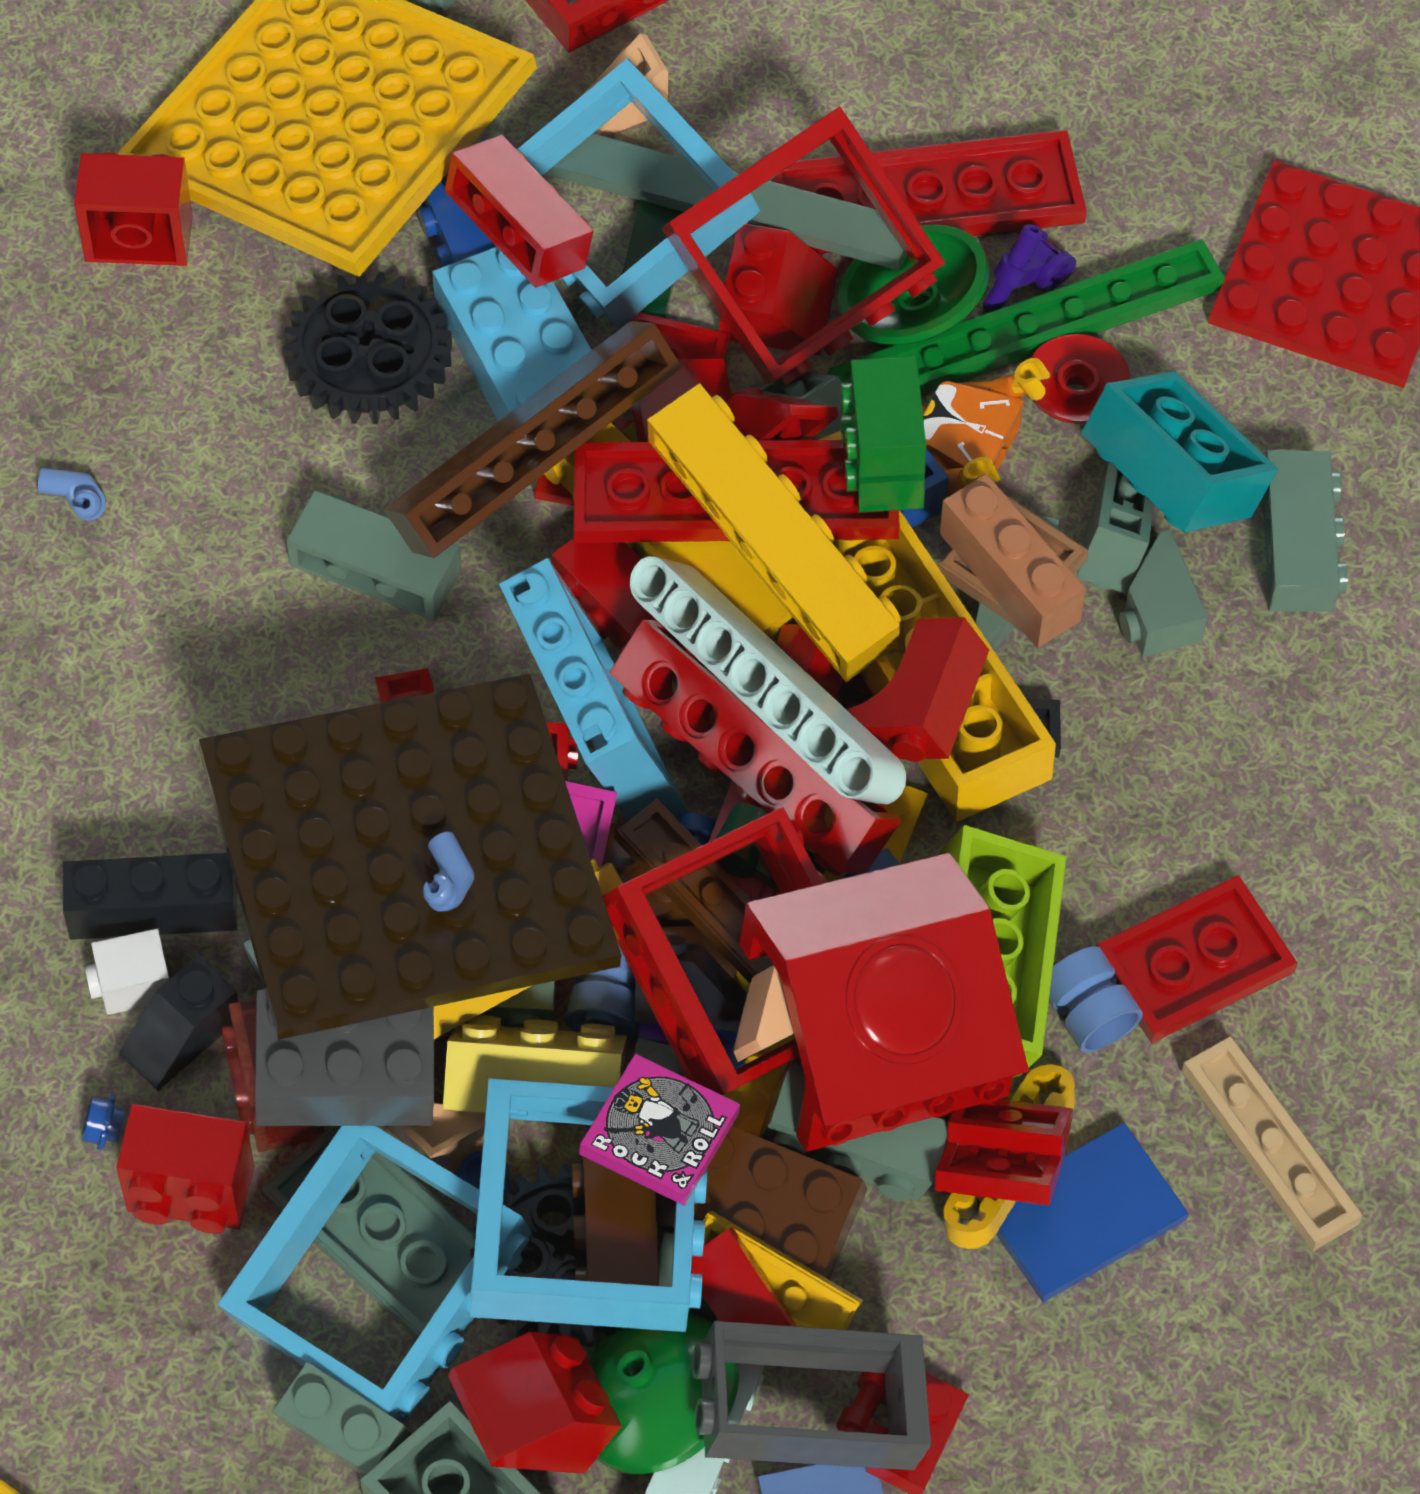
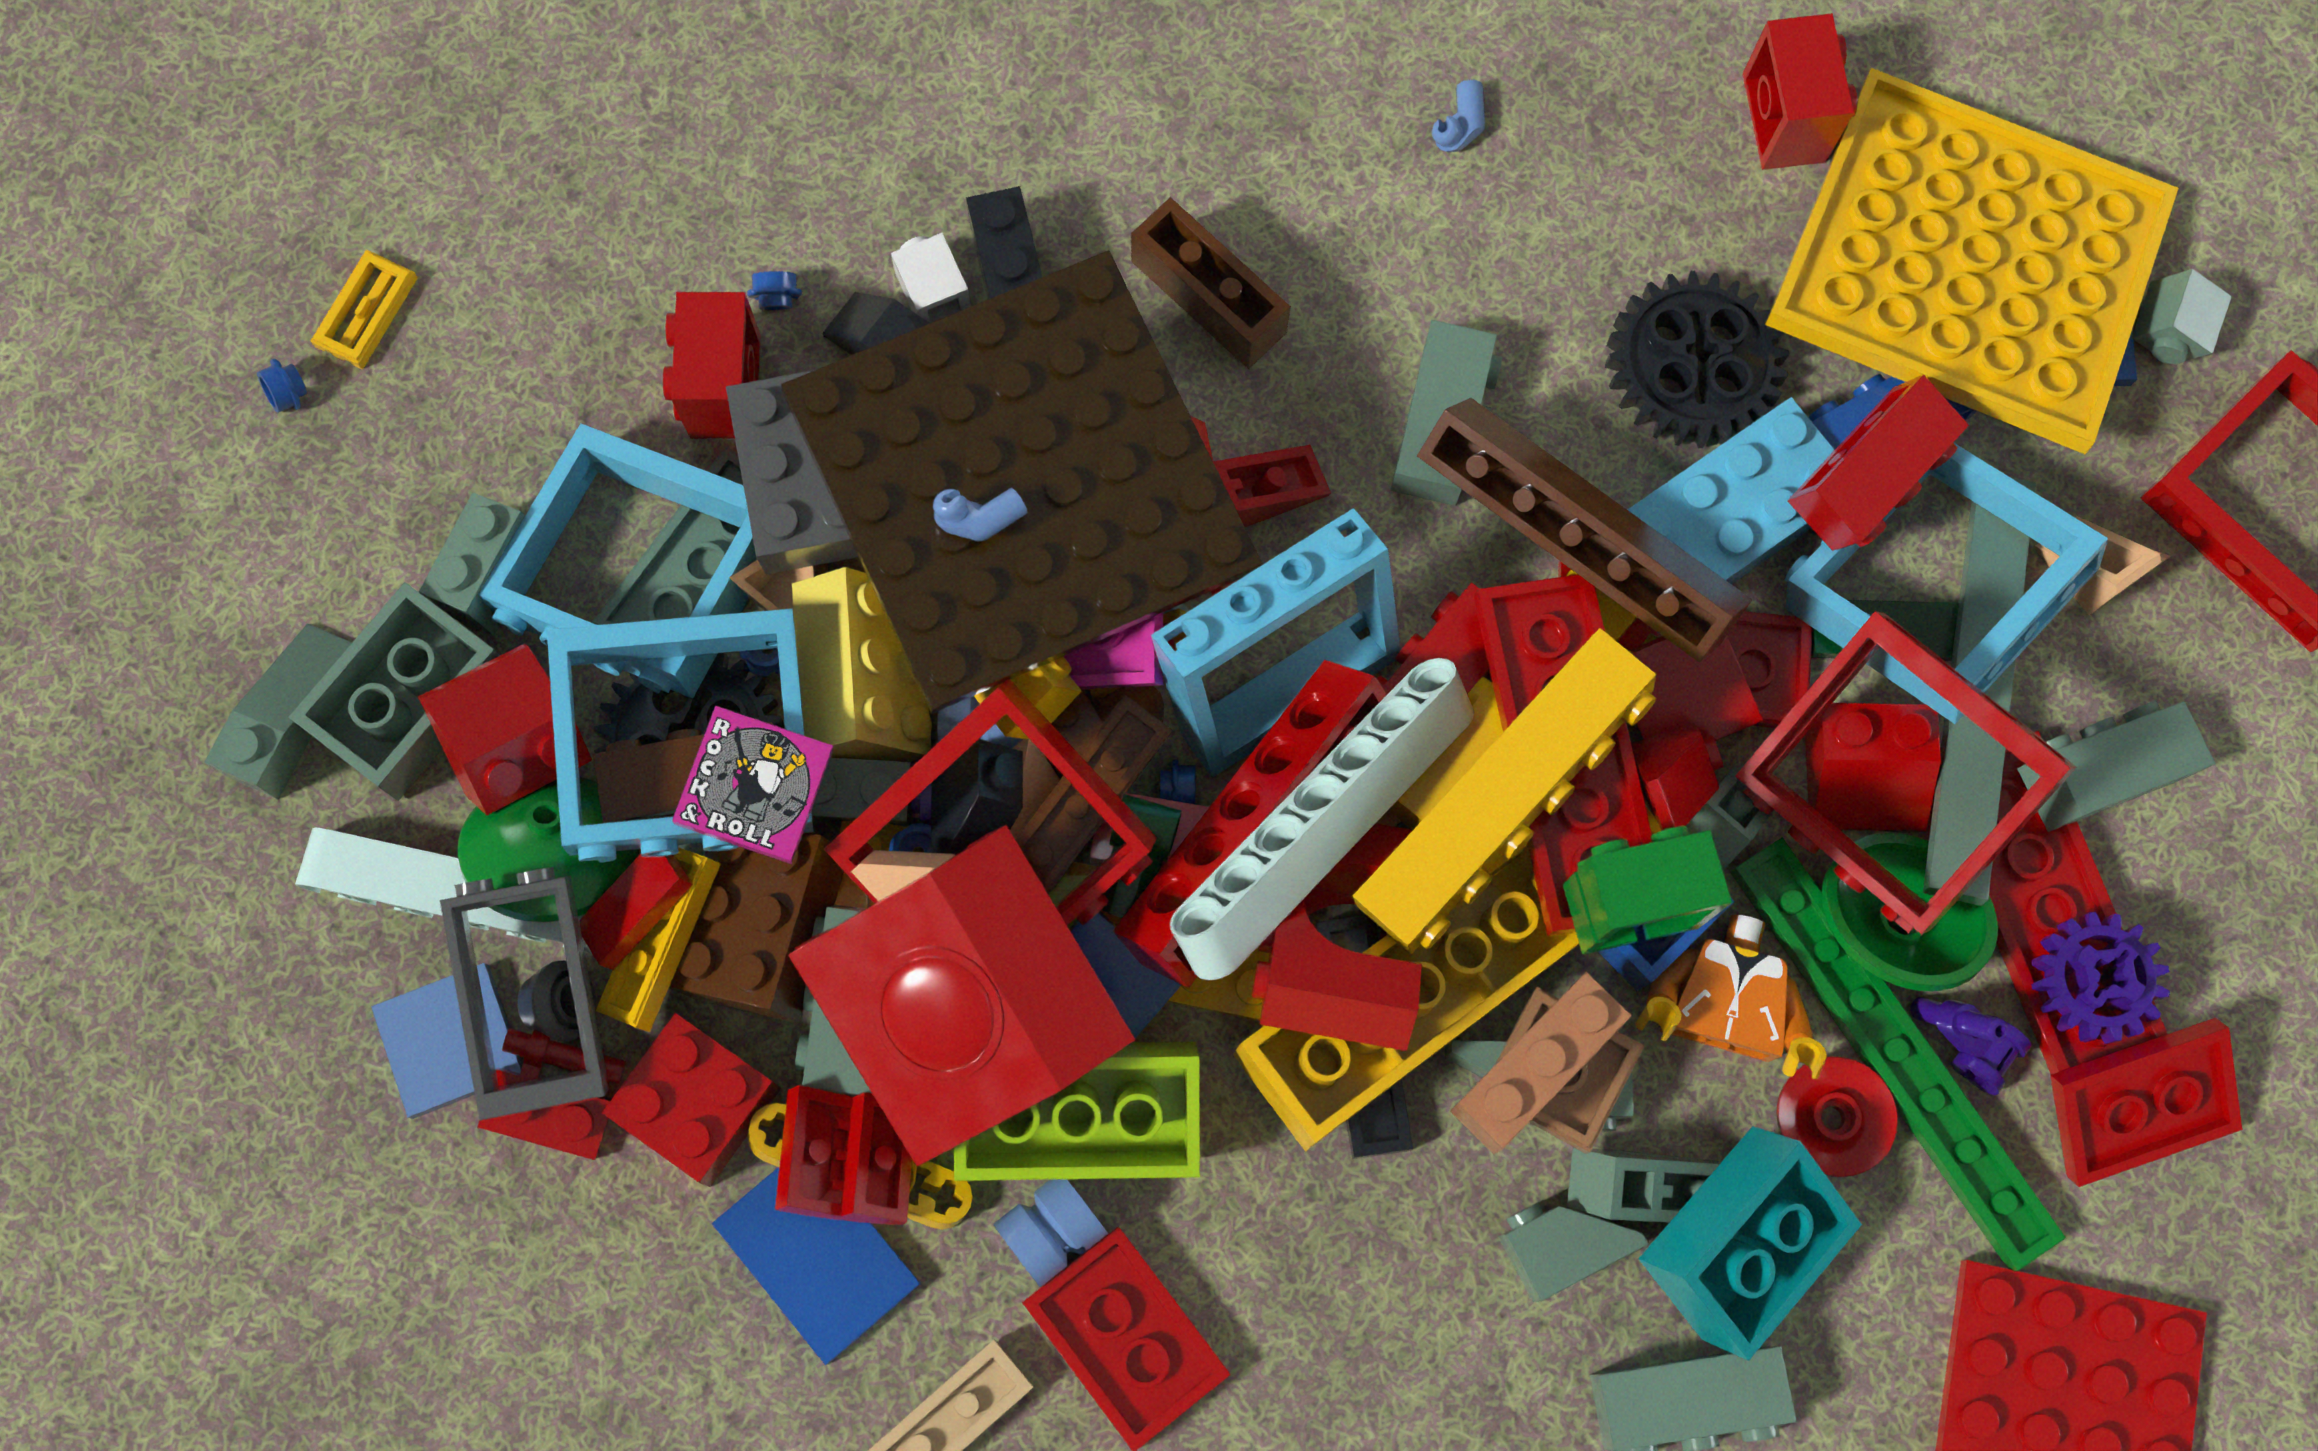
camera: 80 degrees right, 15 degrees up
(163, 739) = (1209, 283): none -> reddish brown brick
(802, 91) = (2123, 761): none -> sand green brick
(809, 1403) = (548, 1002): none -> dark grey cone
(929, 1285) = (690, 1100): none -> red brick
(994, 161) = (2073, 978): none -> dark purple gear
(1100, 157) = (2147, 1102): none -> red plate

